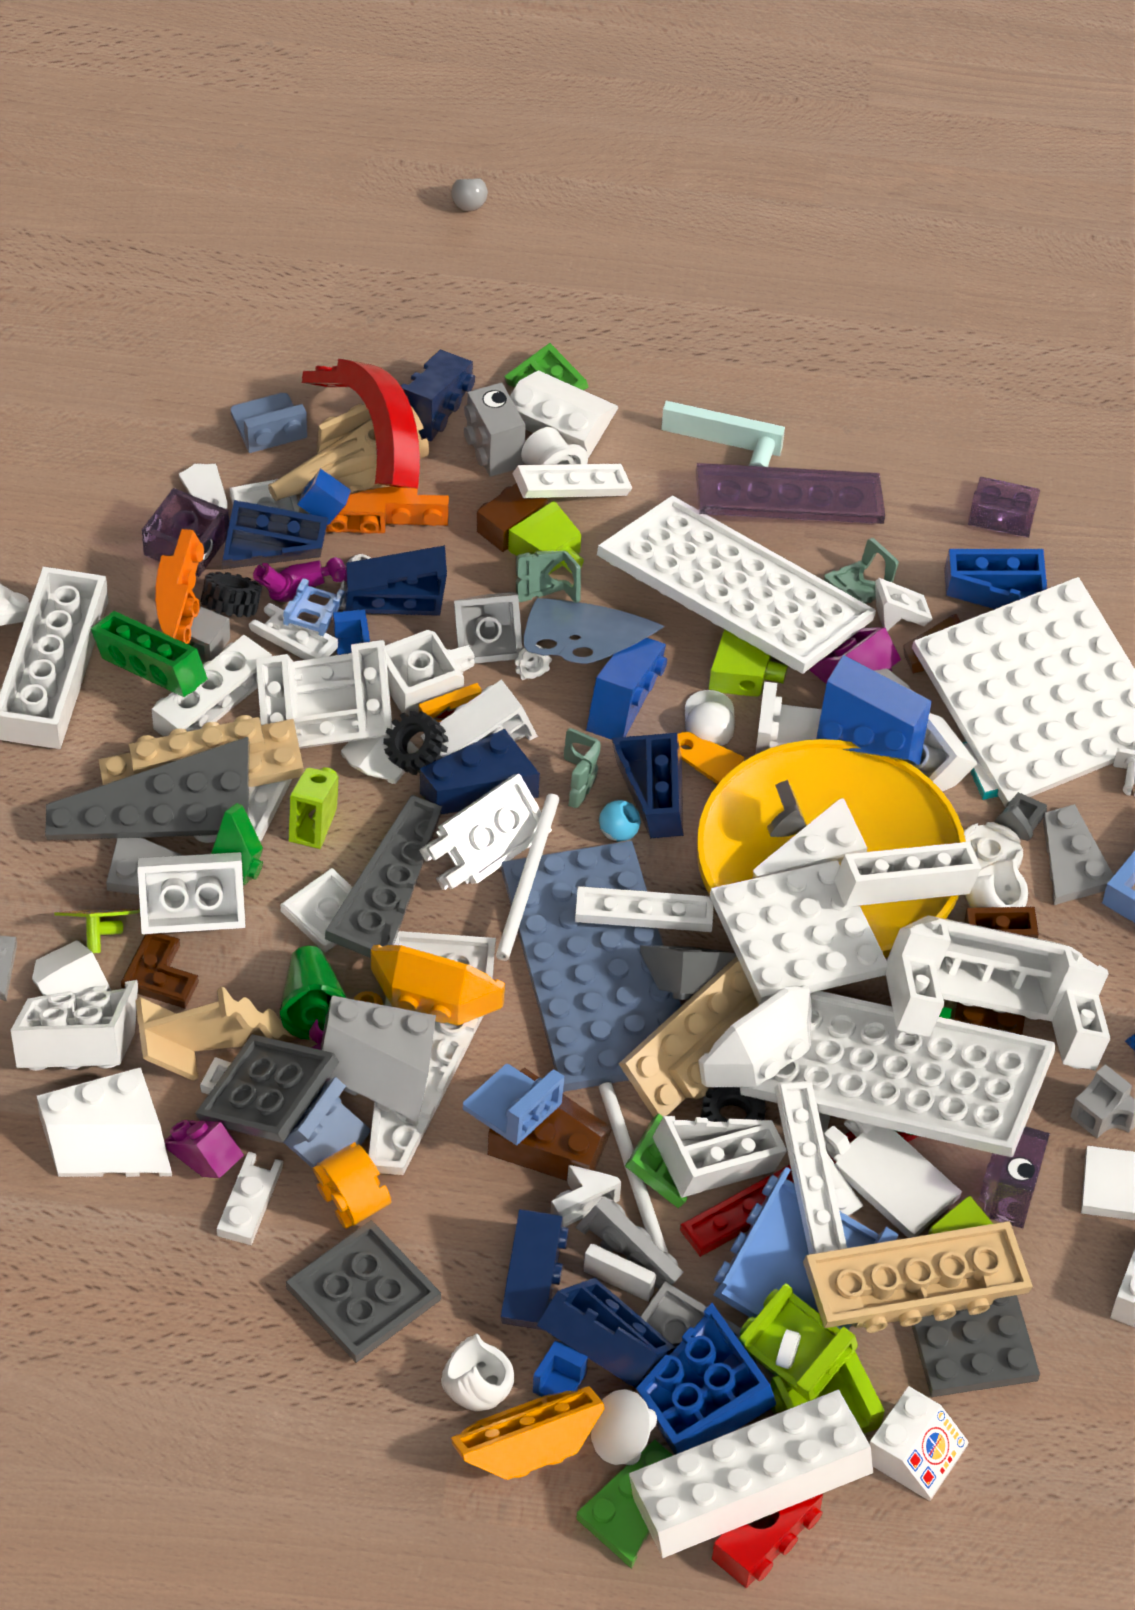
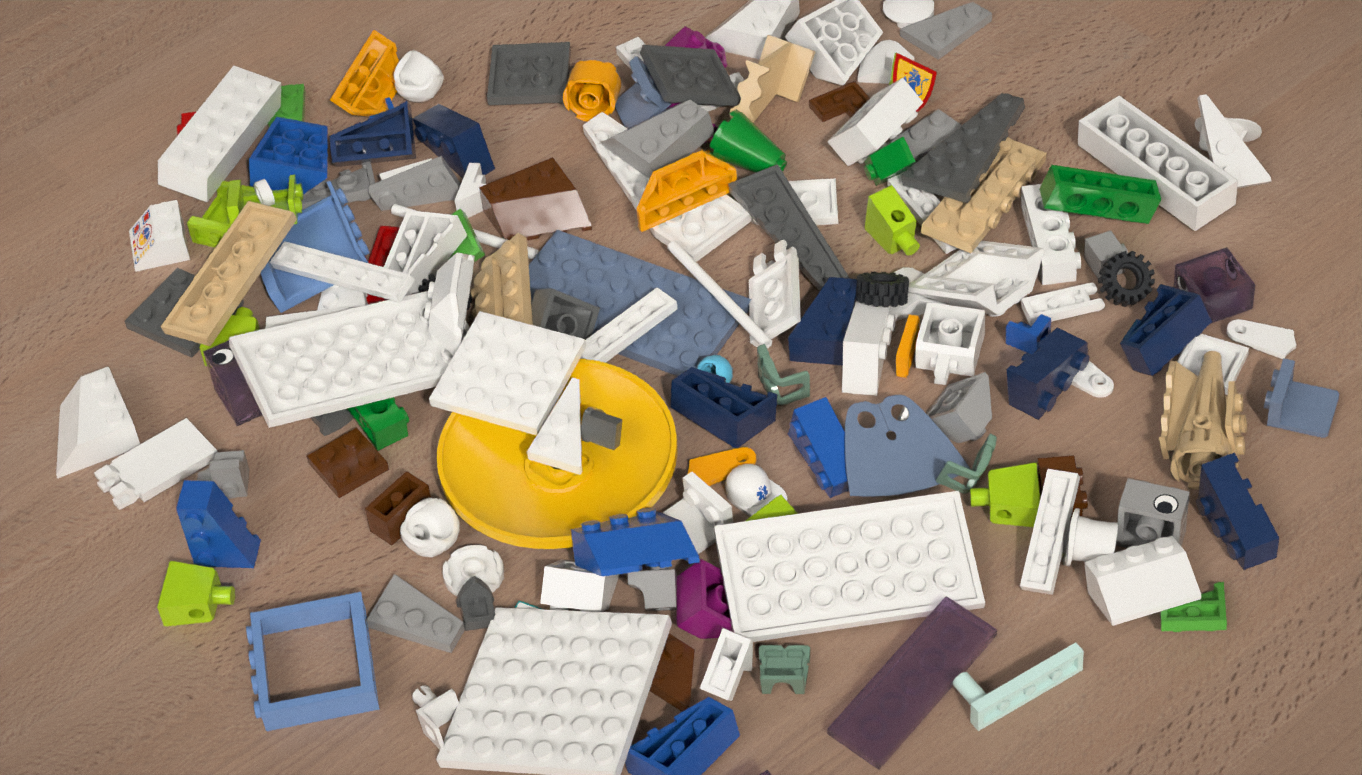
camera: 140 degrees right, 5 degrees down
(174, 585) = (1140, 226): orange slope -> none
(283, 585) = (1113, 327): magenta arm -> none
(301, 604) = (1080, 314): medium blue piece -> none
(324, 496) = (1168, 366): blue panel -> none
(374, 508) = (1139, 420): orange slope -> none
(390, 413) = (1227, 422): red arch -> none
(514, 1102) = (549, 163): medium blue bracket -> none
(623, 1428) = (327, 116): white dish -> none
(907, 874) = (471, 435): white brick -> none
(998, 972) = (372, 463): white wedge -> none

